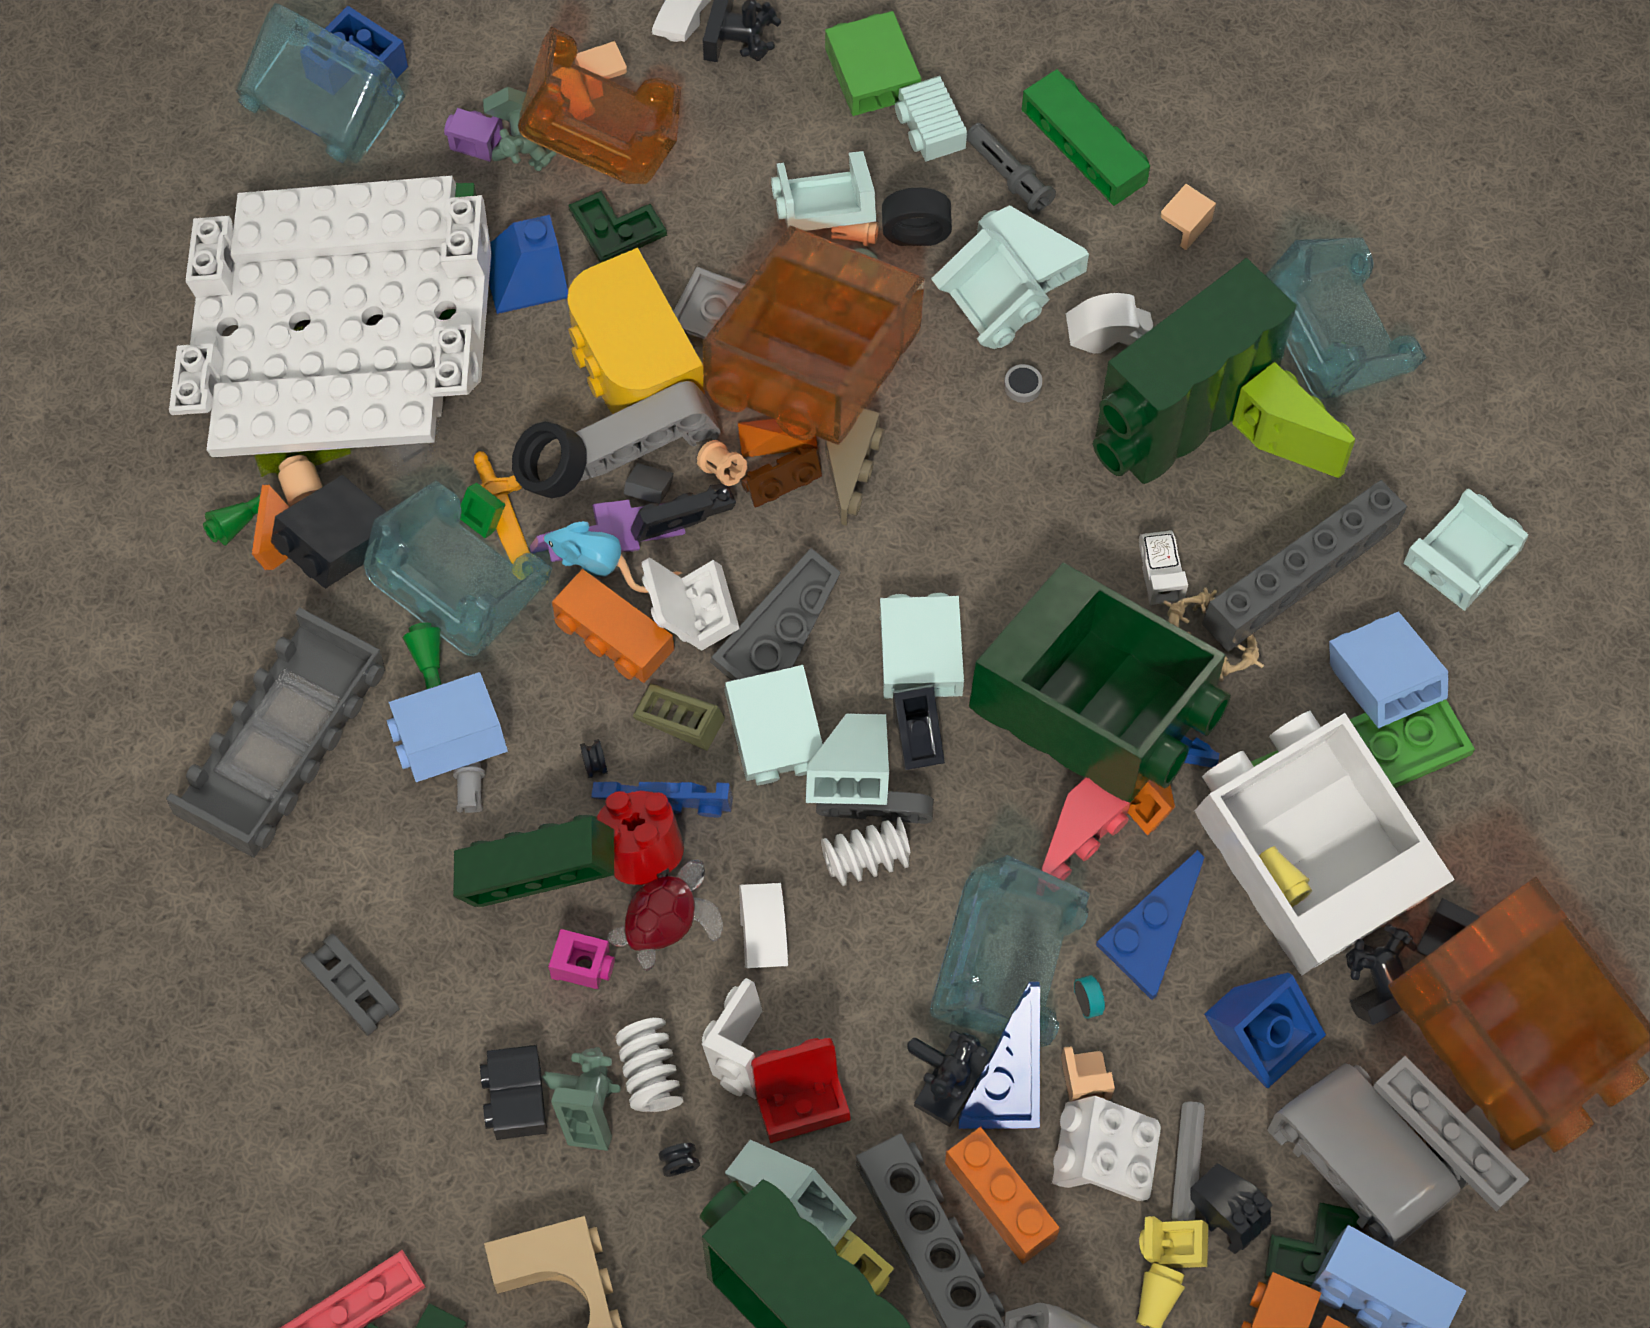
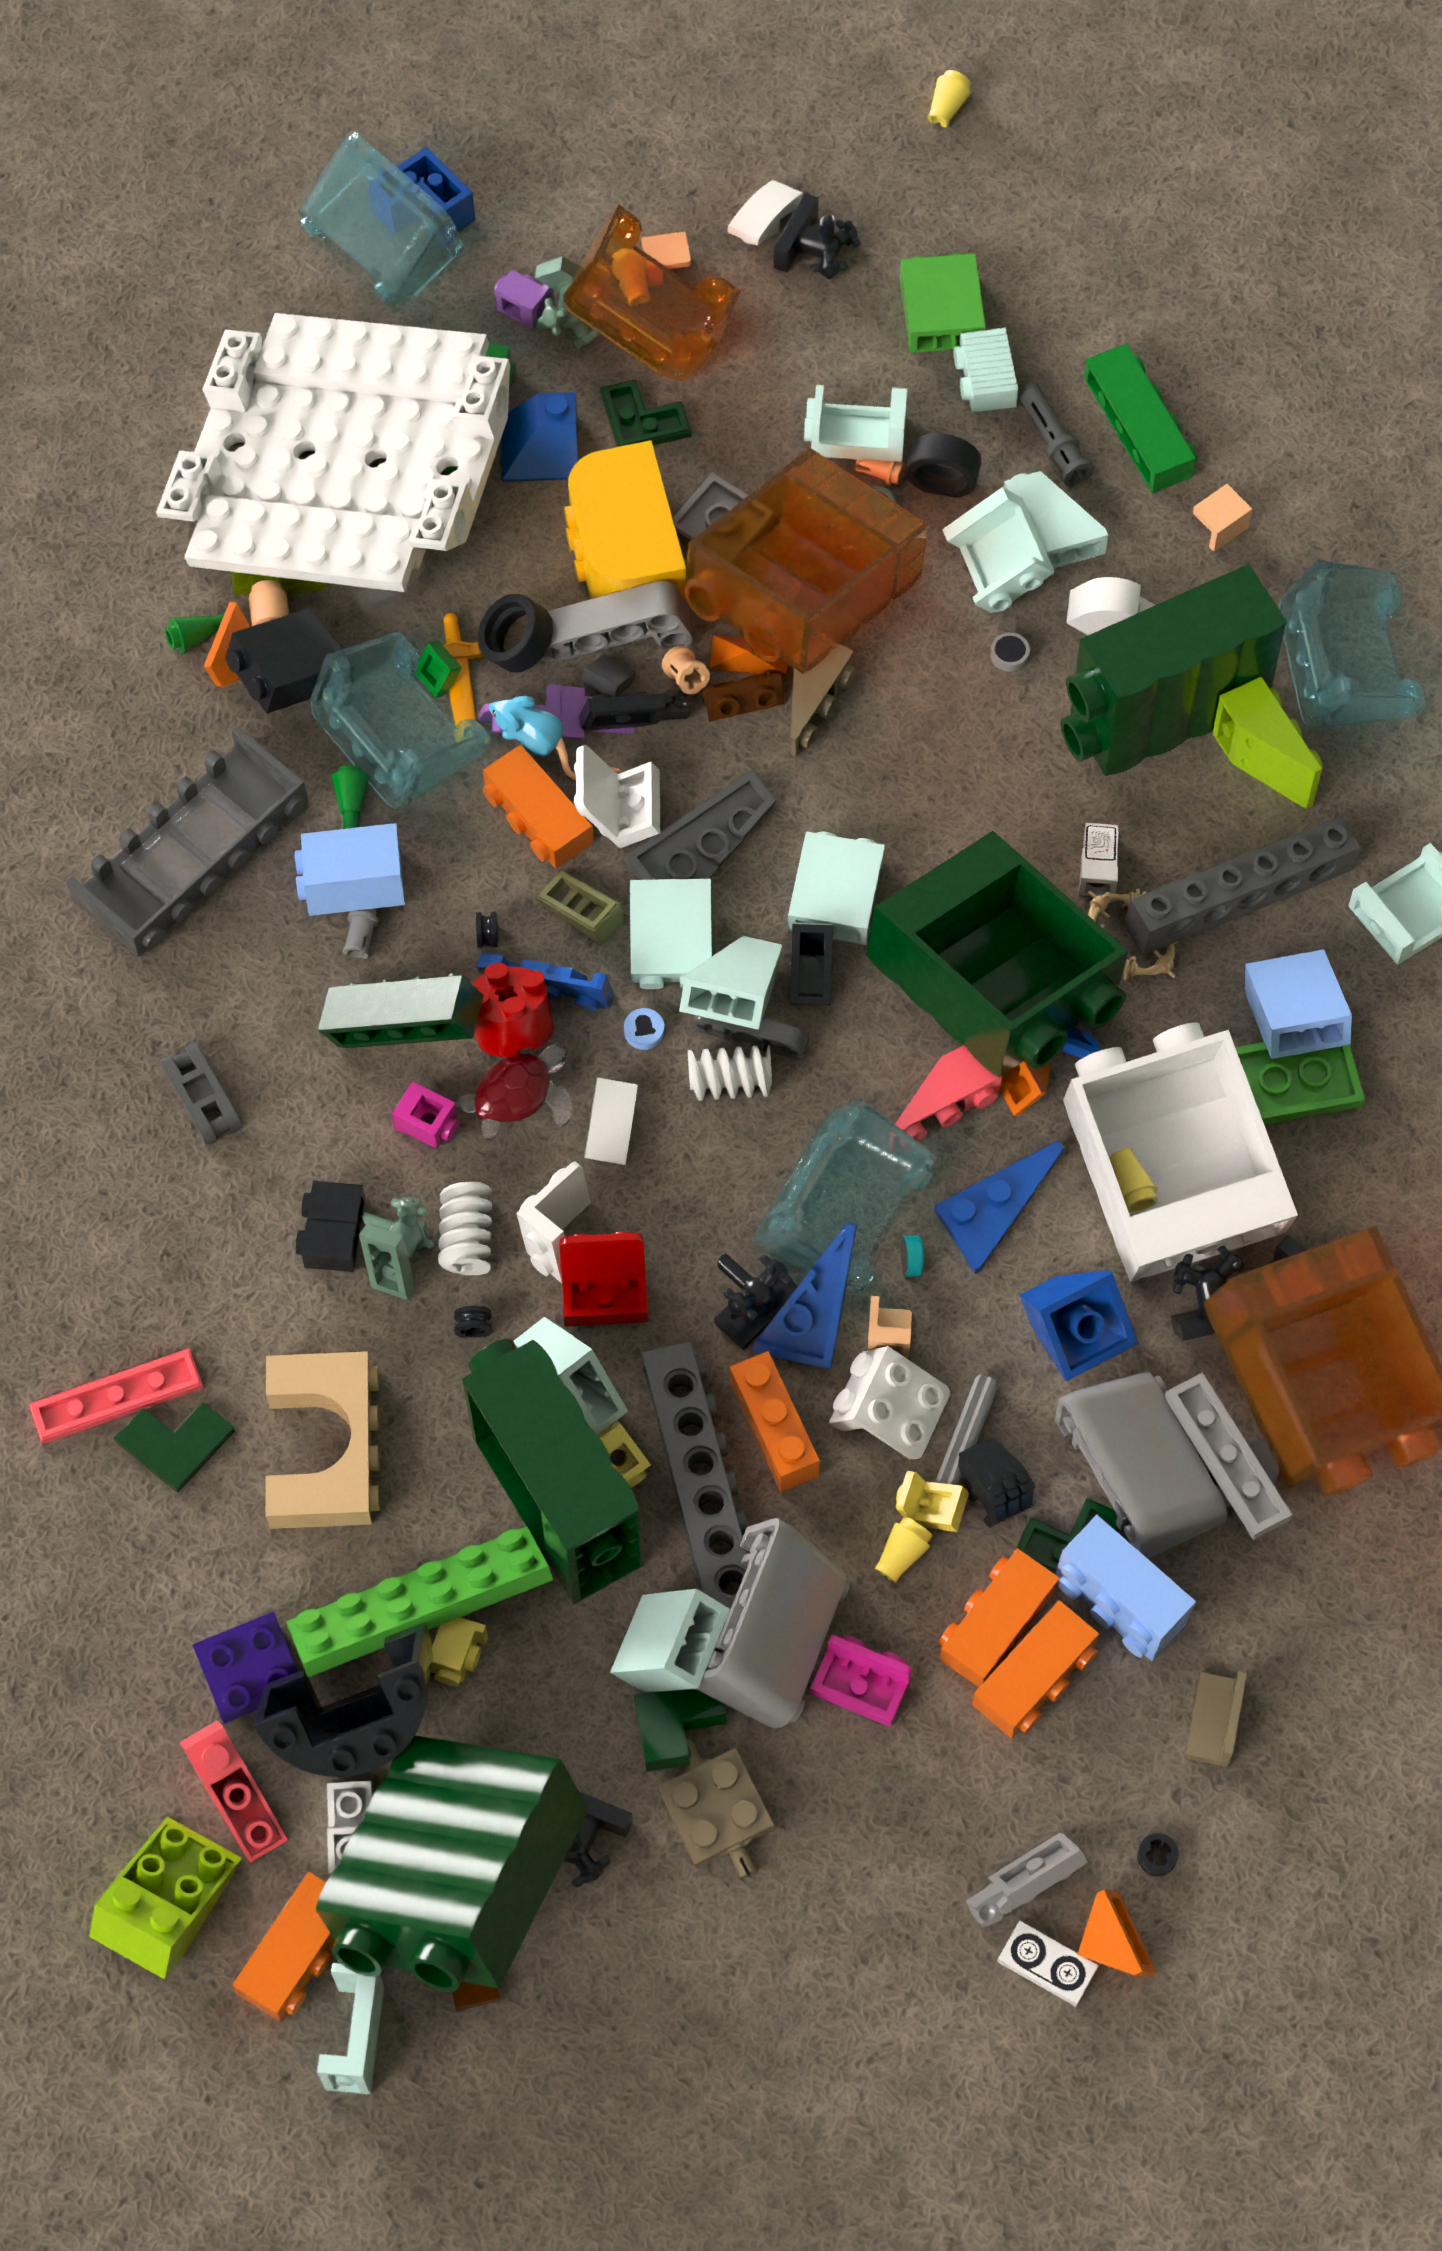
camera: 15 degrees right, 0 degrees up
(770, 825) = (644, 1028): none -> light blue tile

